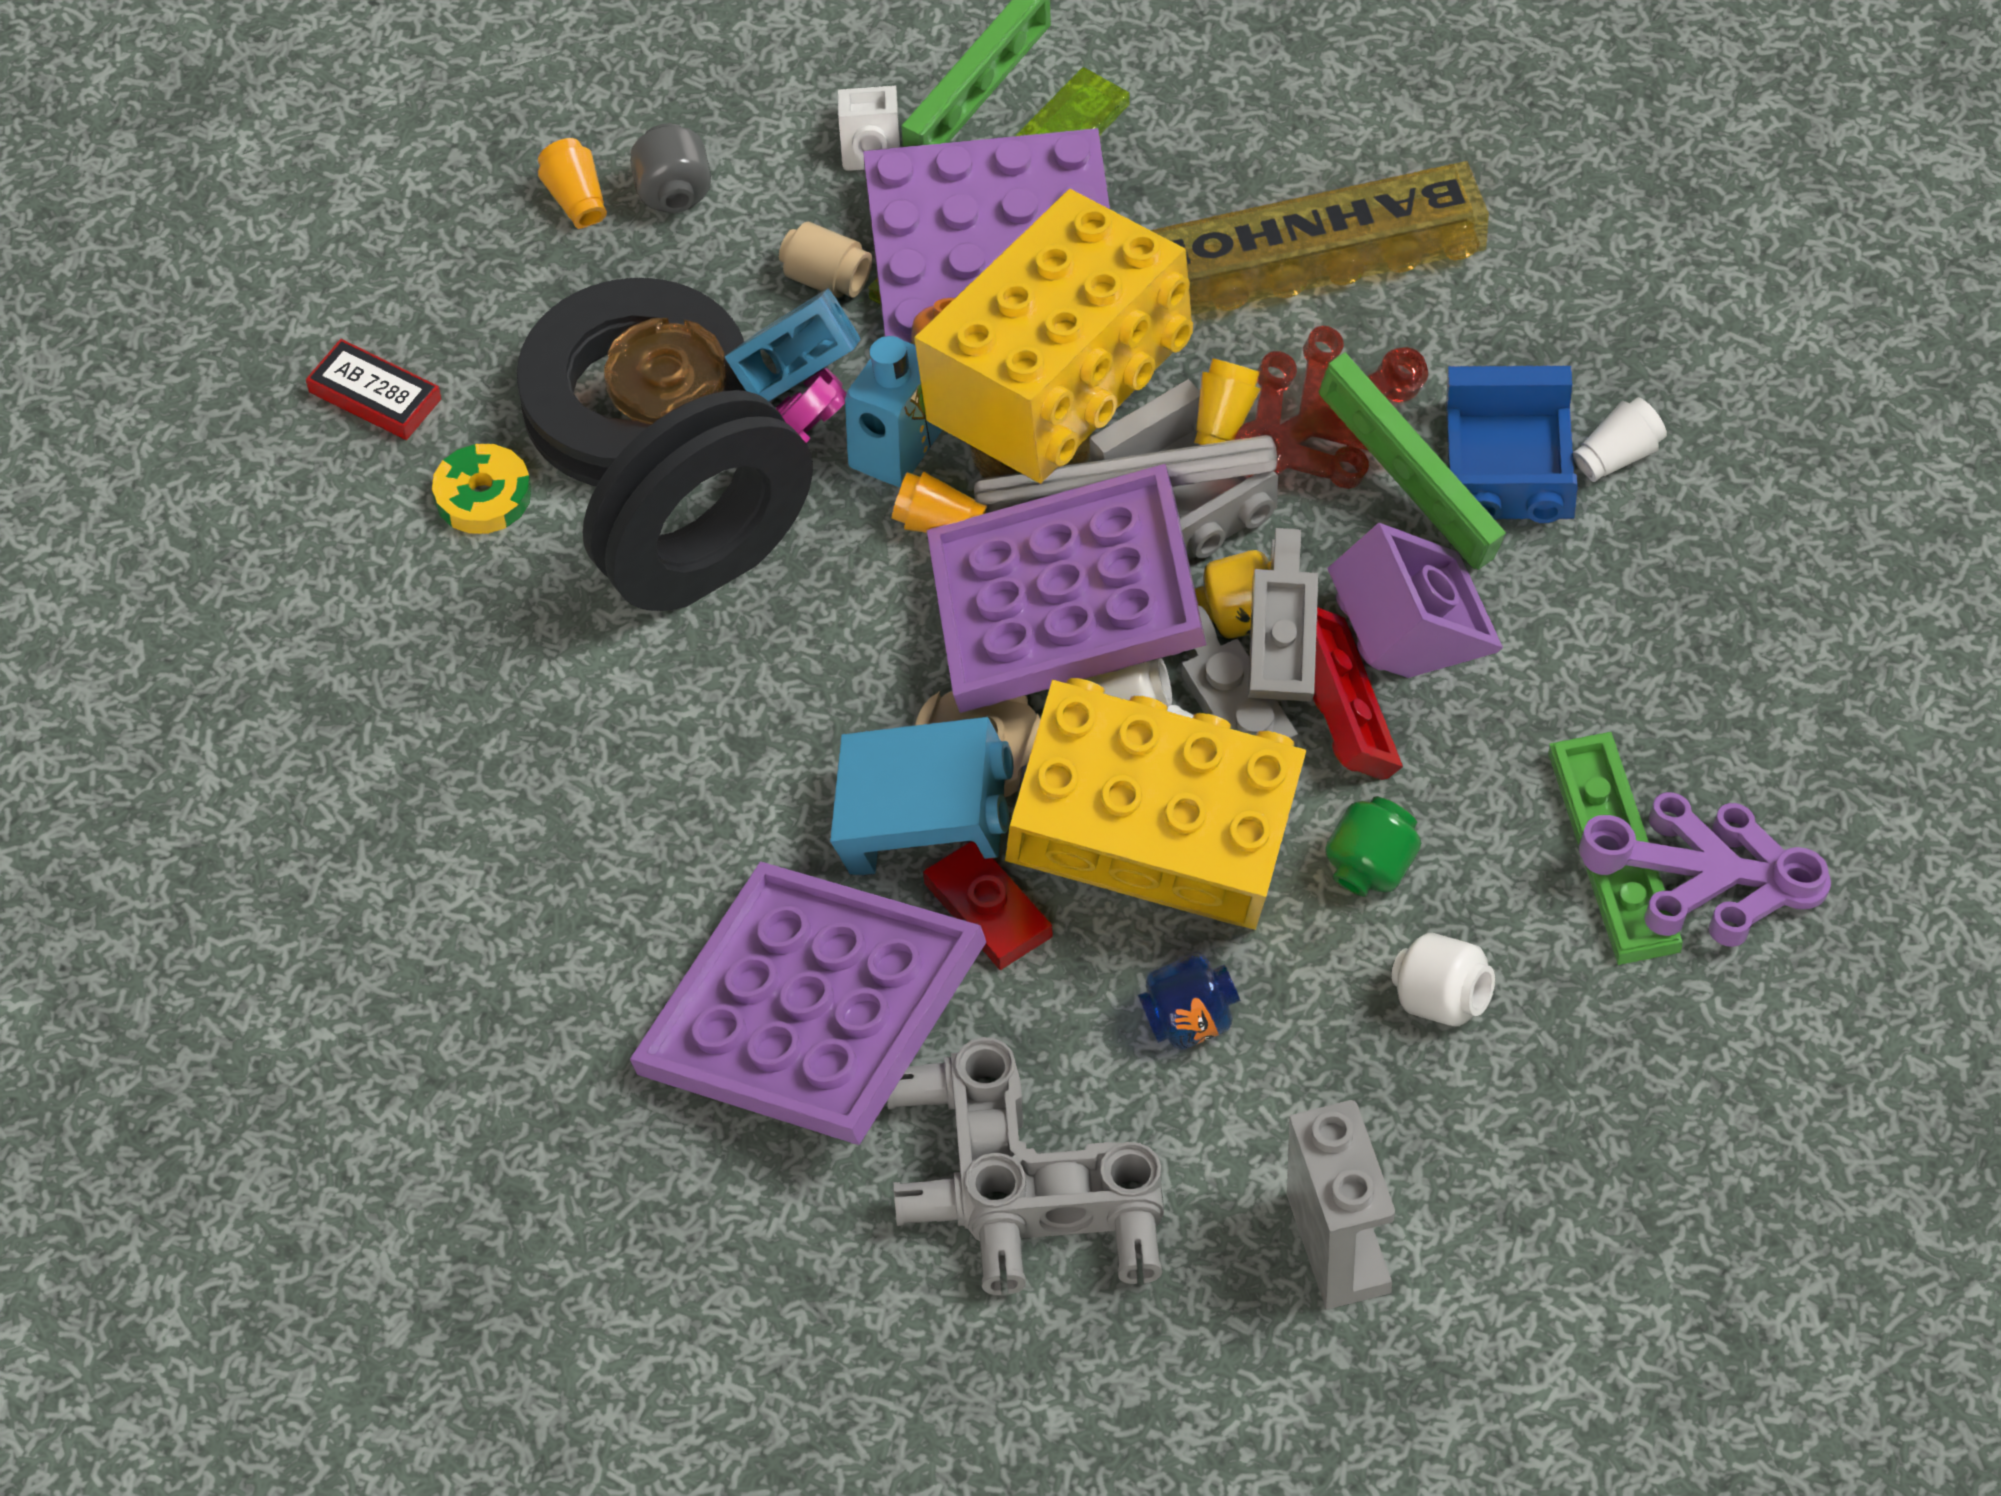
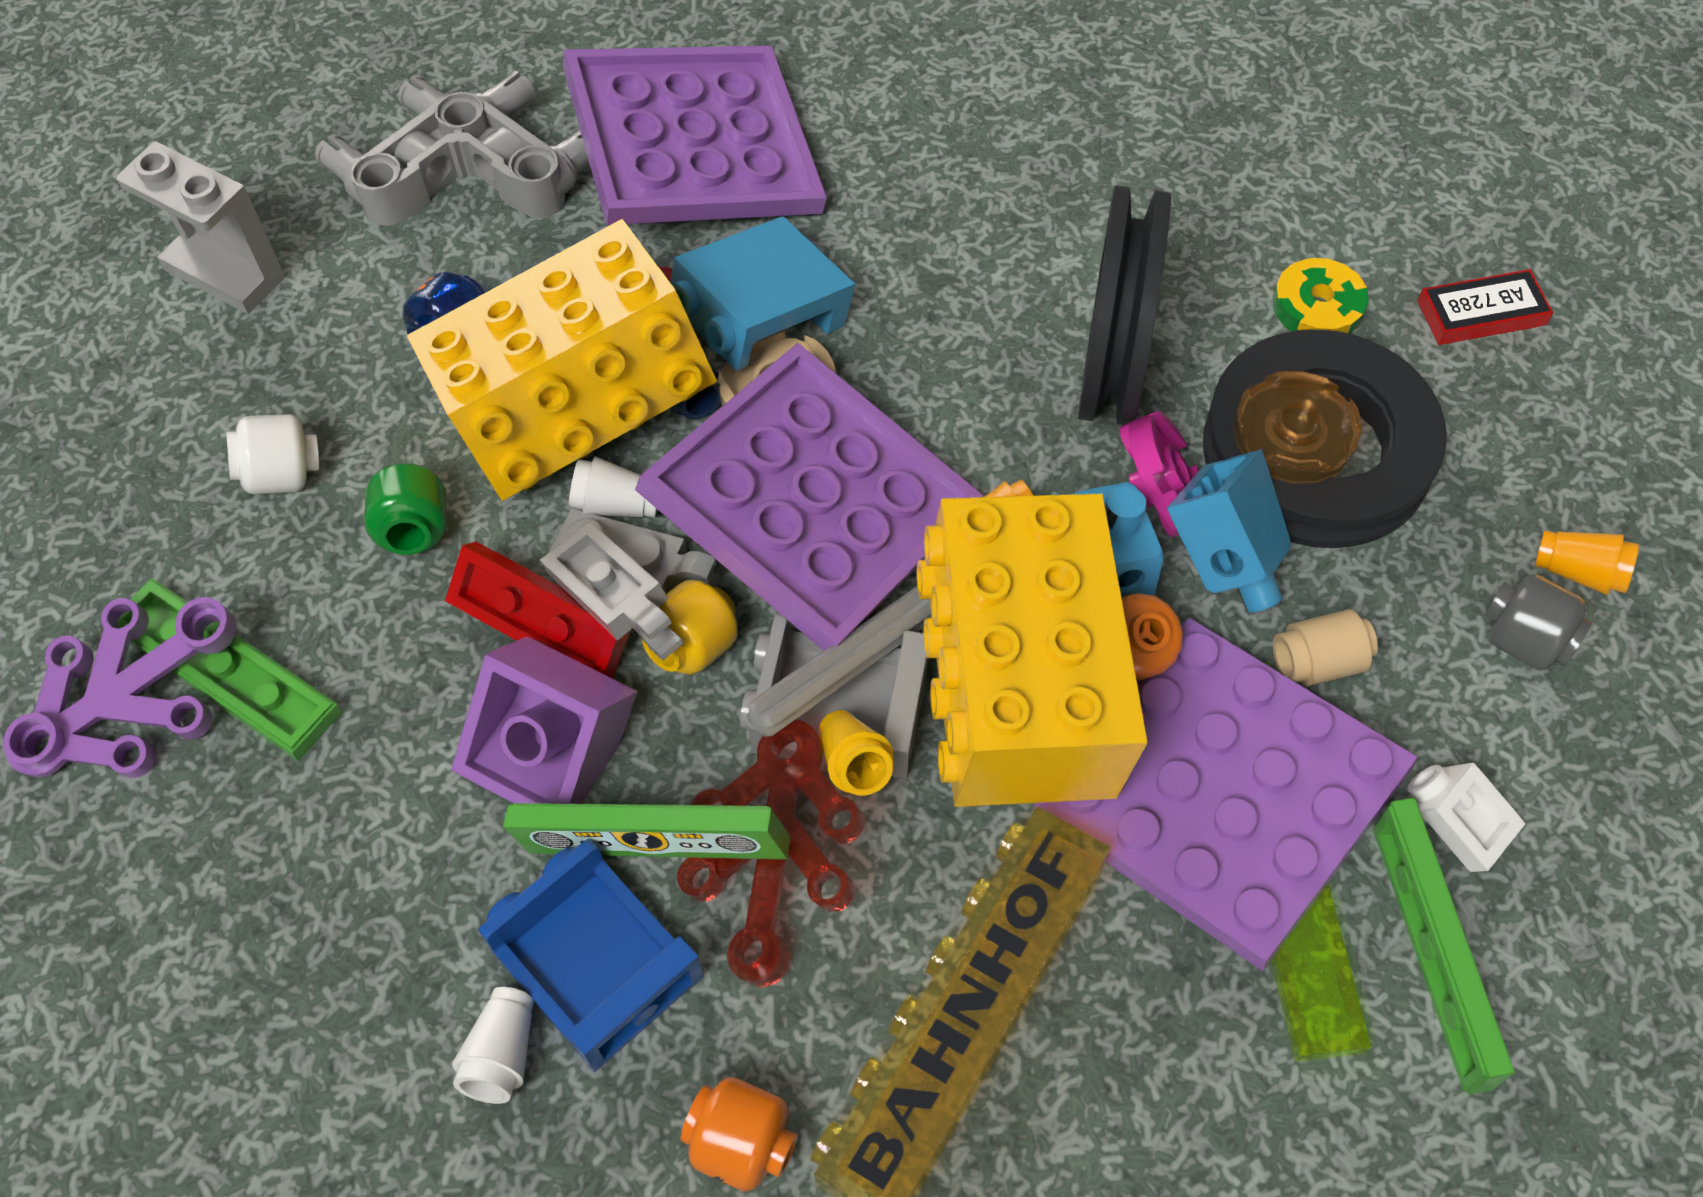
camera: 135 degrees right, 5 degrees up
(1510, 282) = (738, 1134): none -> orange head

